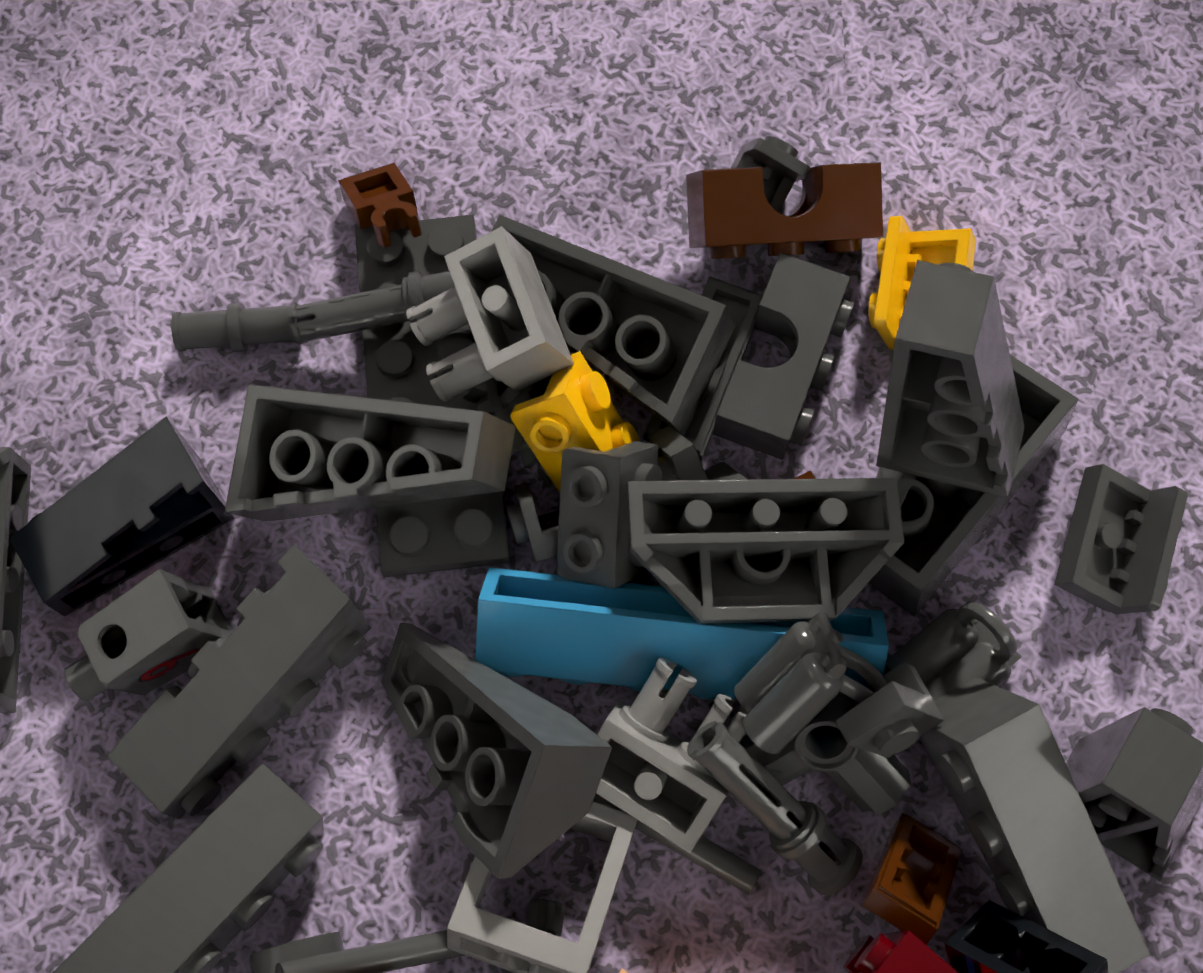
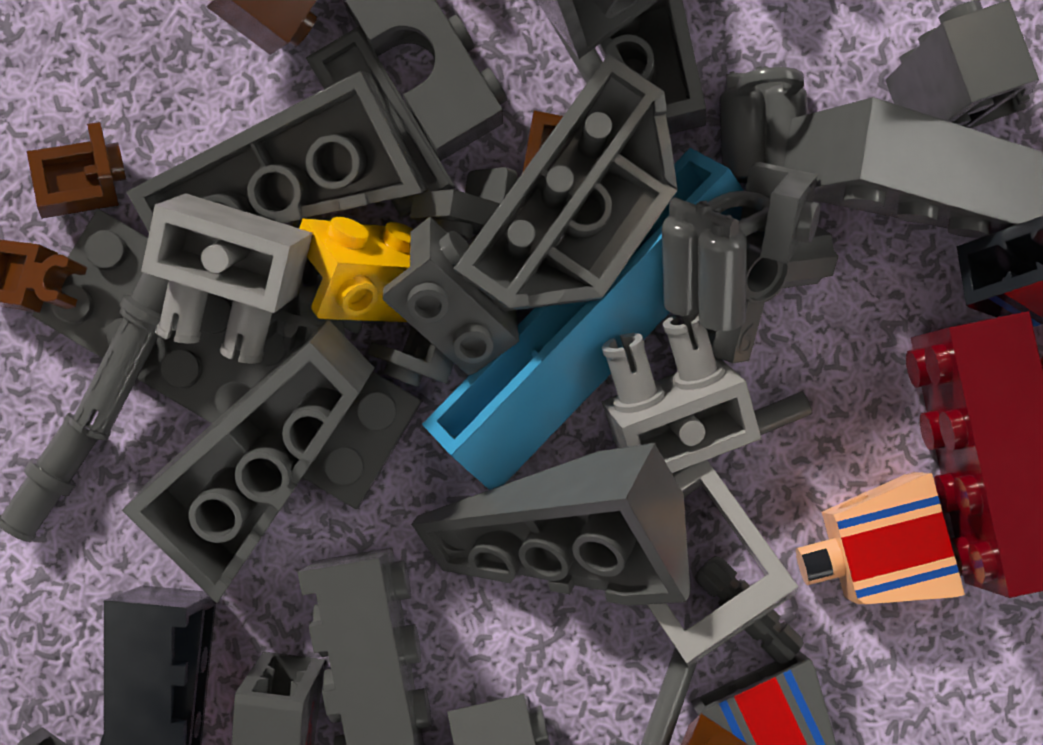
camera: 50 degrees left, 15 degrees up
(487, 182) = (76, 175): none -> reddish brown bracket
(794, 826) = (720, 360): dark grey pin -> none
(913, 878) = (899, 288): reddish brown plate -> none

